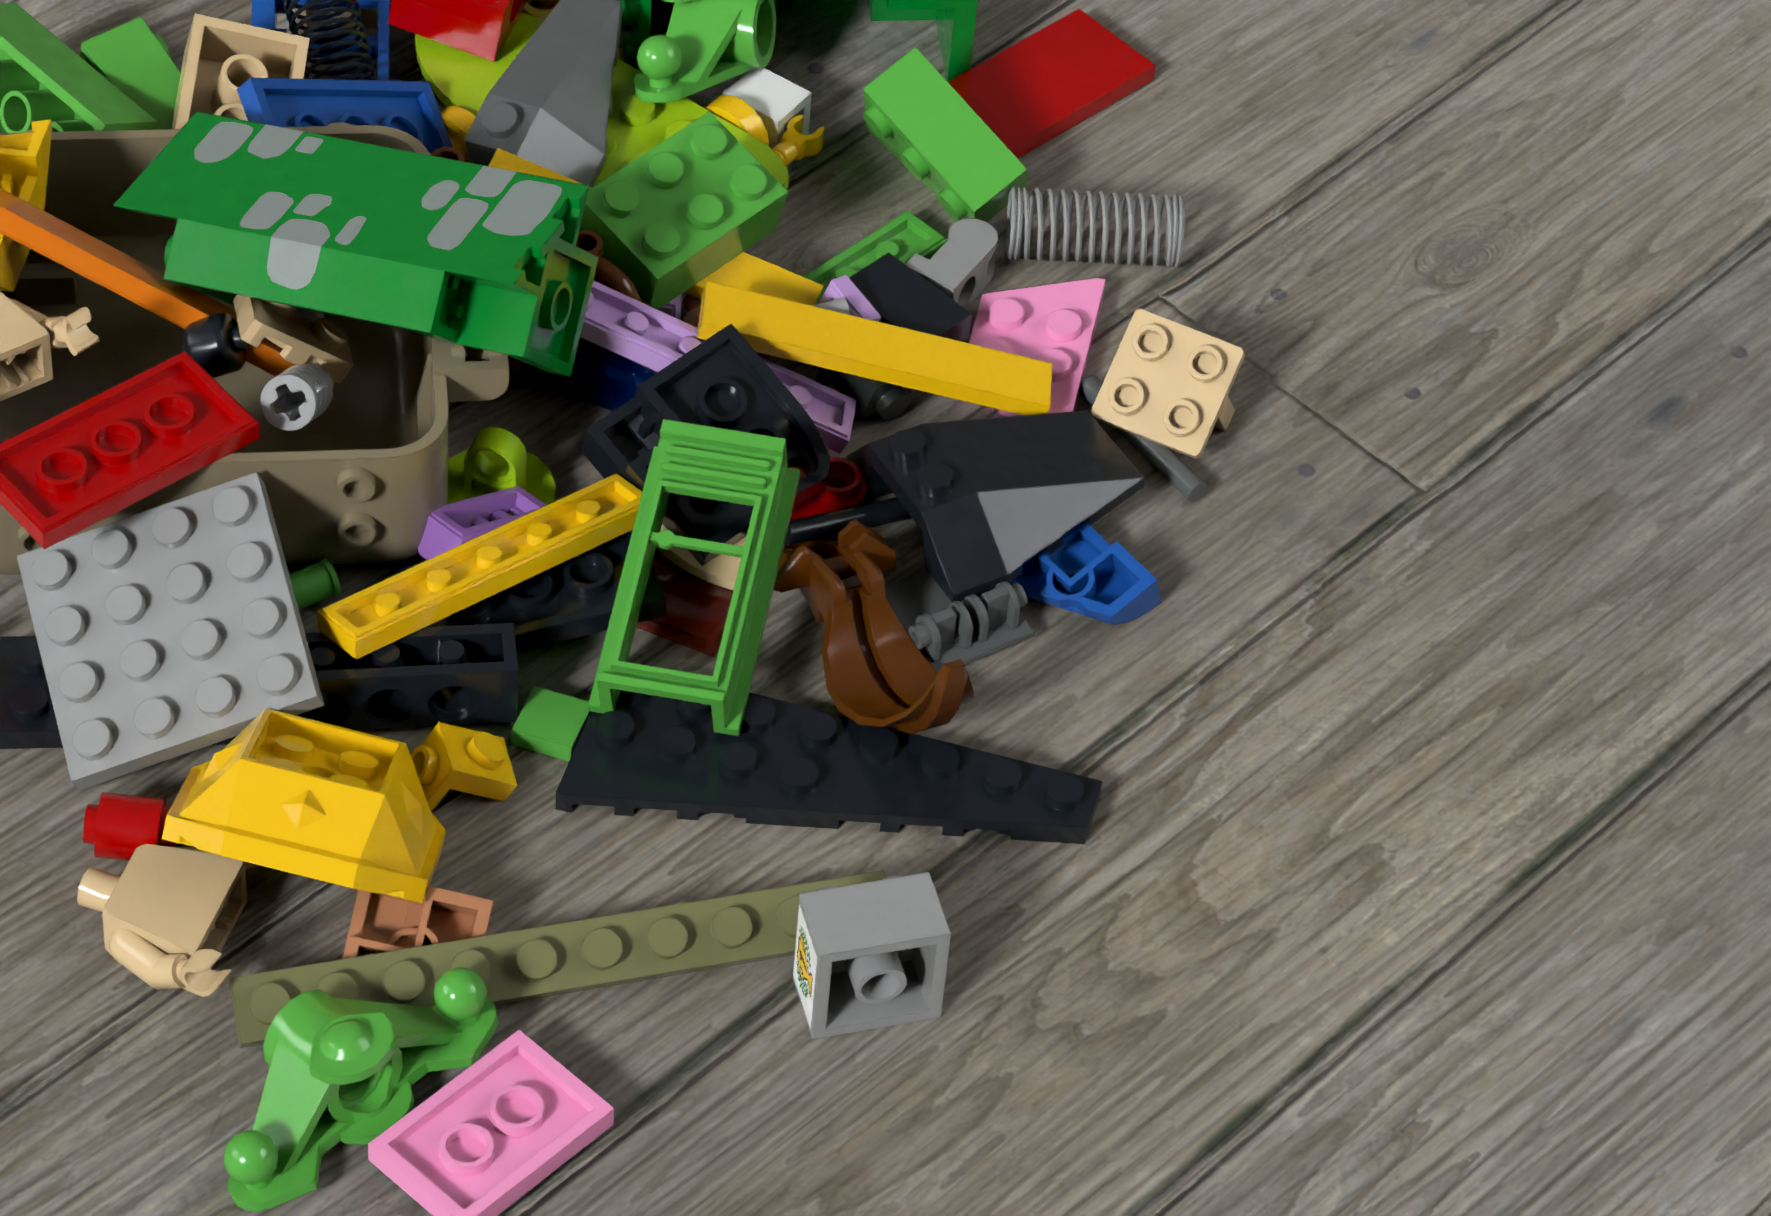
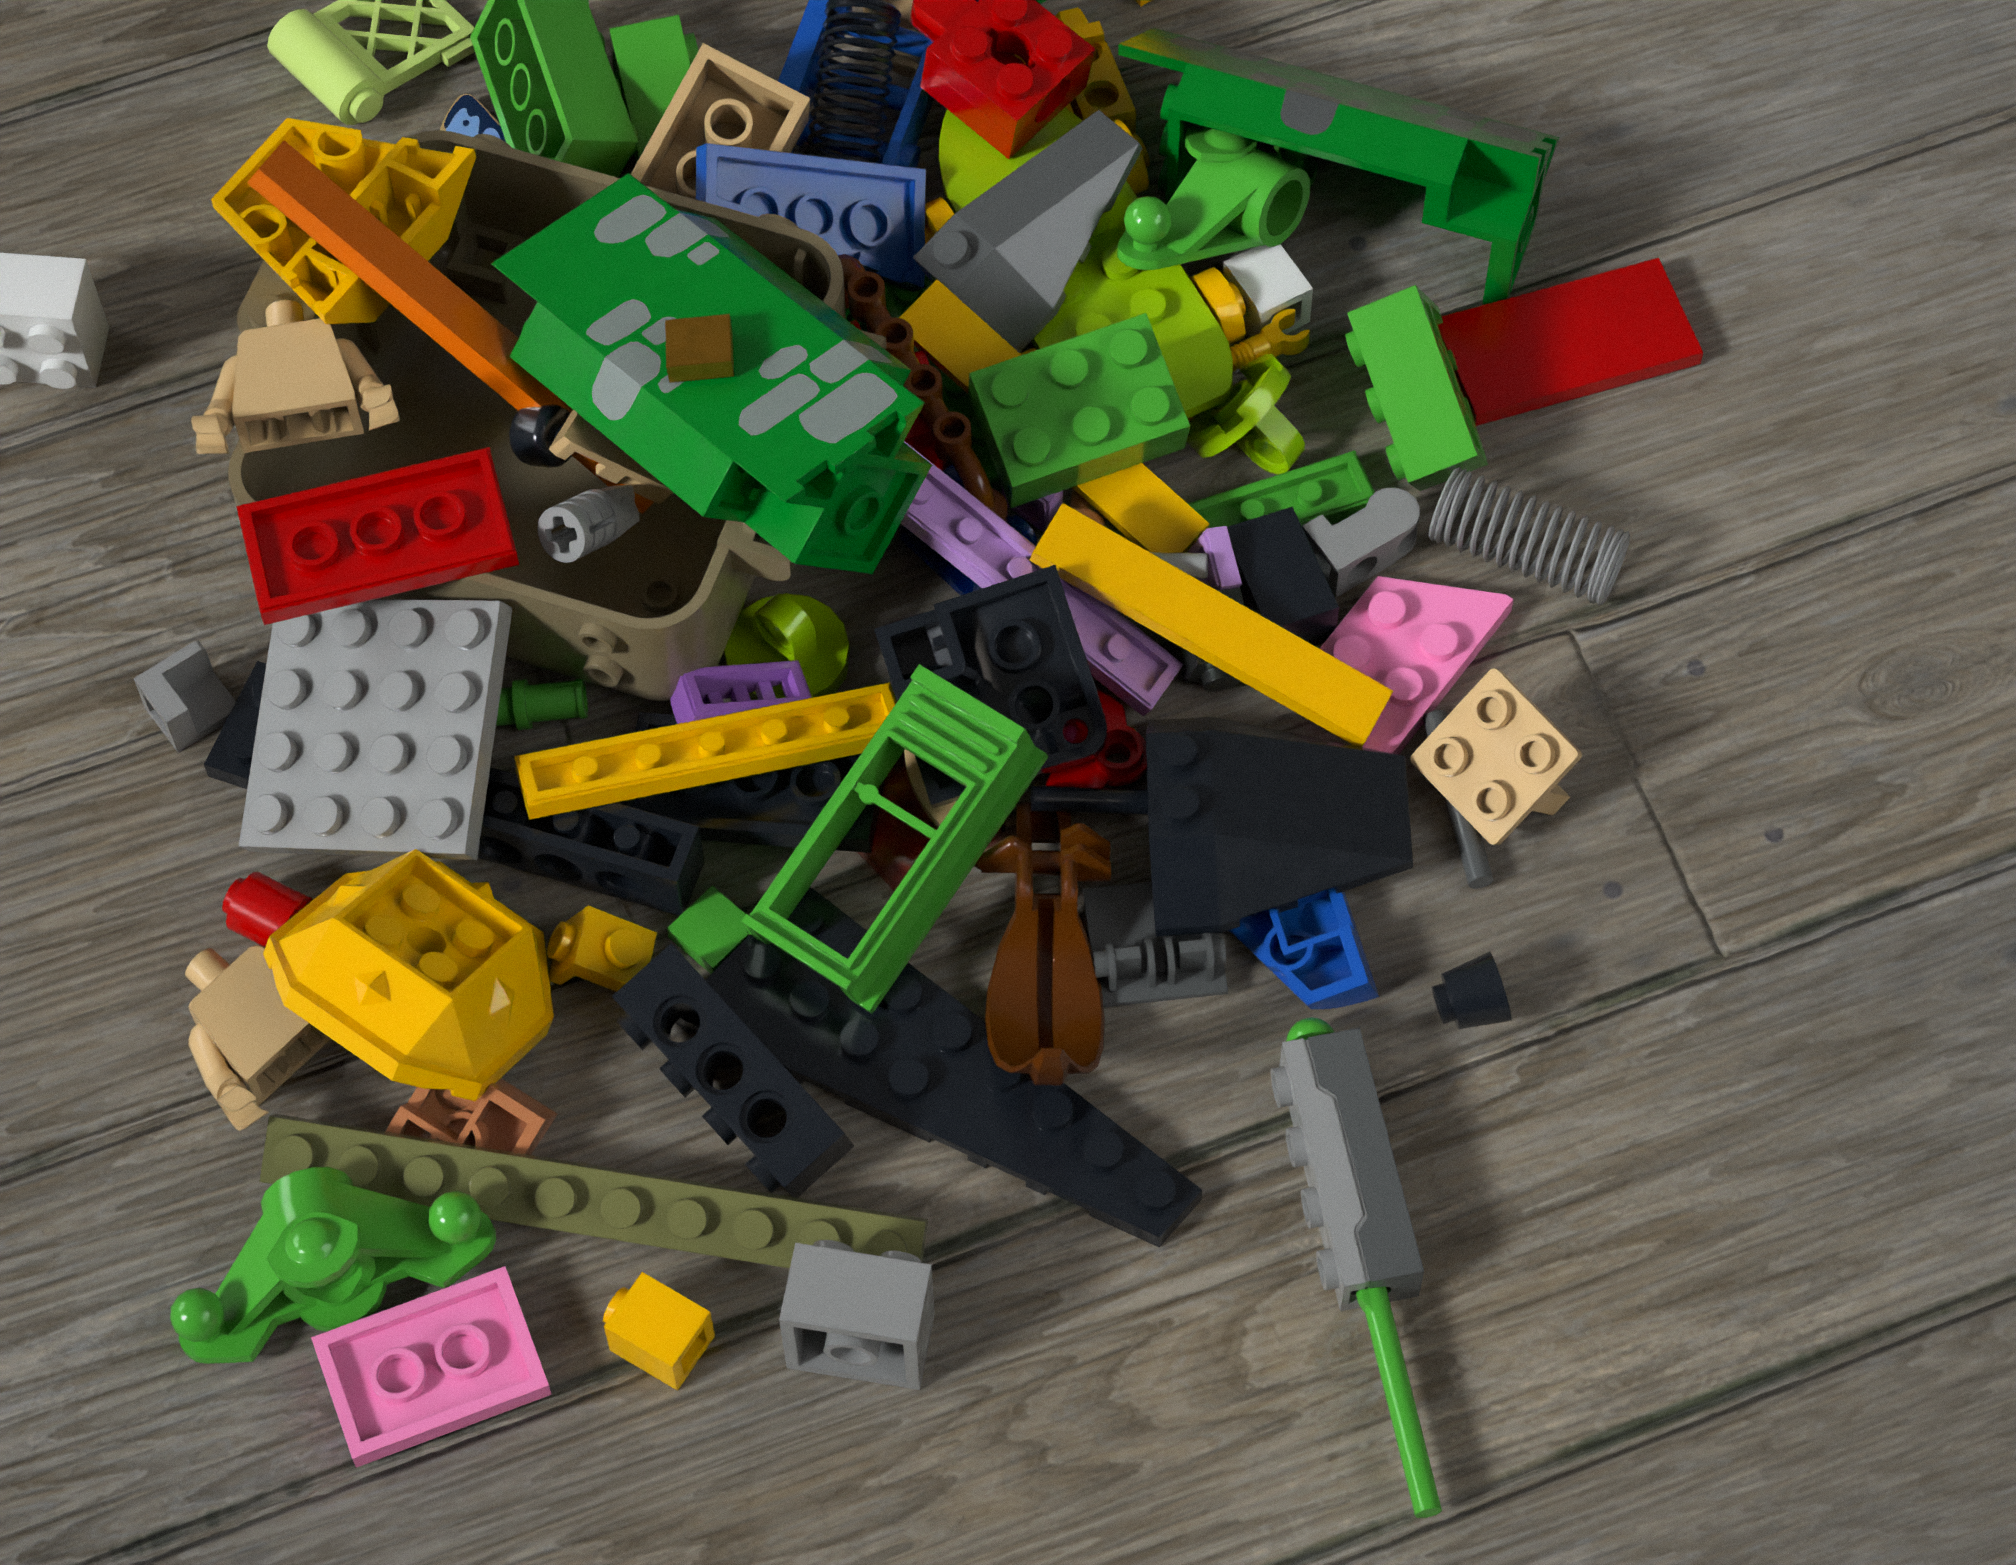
camera: 30 degrees right, 15 degrees up
(360, 201) = (699, 348): none -> pearl gold tile
(627, 783) = (673, 989): none -> black brick
(686, 1035) = (657, 1329): none -> yellow brick
(814, 197) = (1251, 420): none -> lime tile
(1243, 751) = (1359, 1211): none -> piece
(1246, 567) = (1472, 994): none -> black hat

